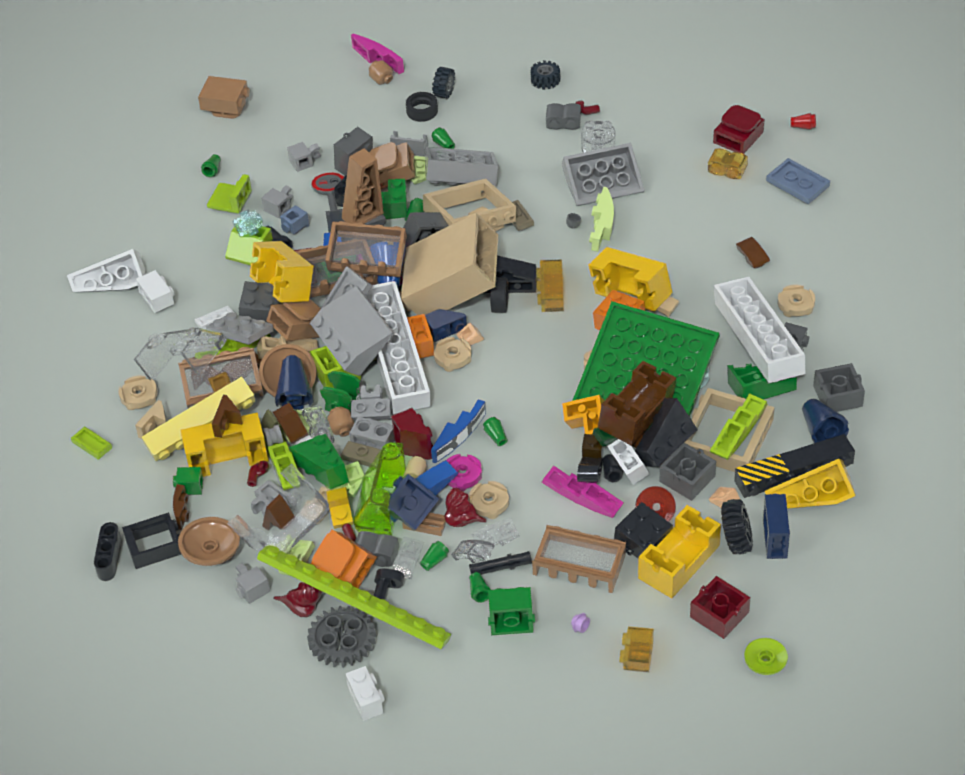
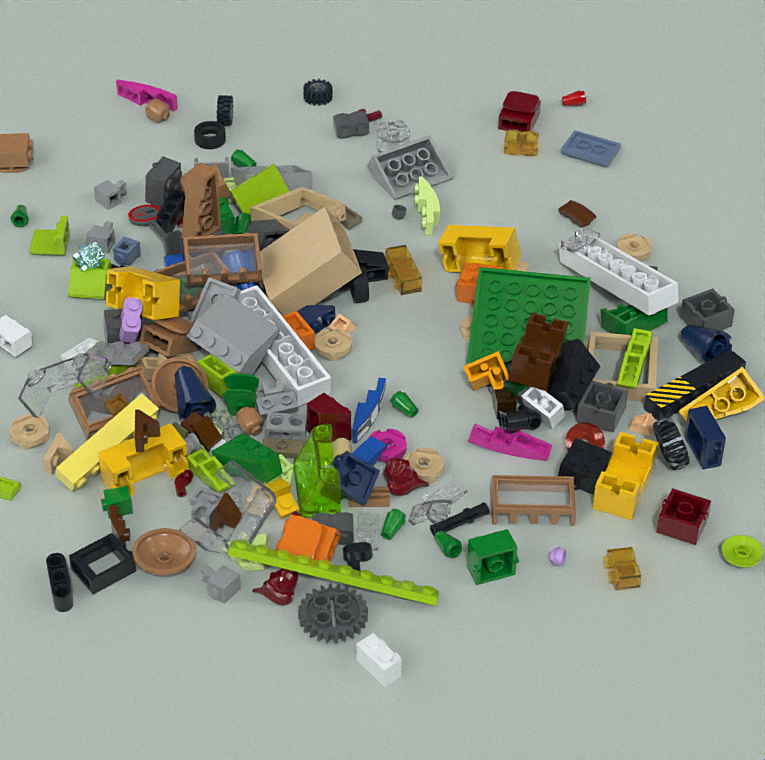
camera: 20 degrees left, 5 degrees down
(261, 297) = (130, 320): none -> lavender brick
(439, 175) = (259, 188): none -> lime tile
(737, 285) = (581, 240): none -> clear slope

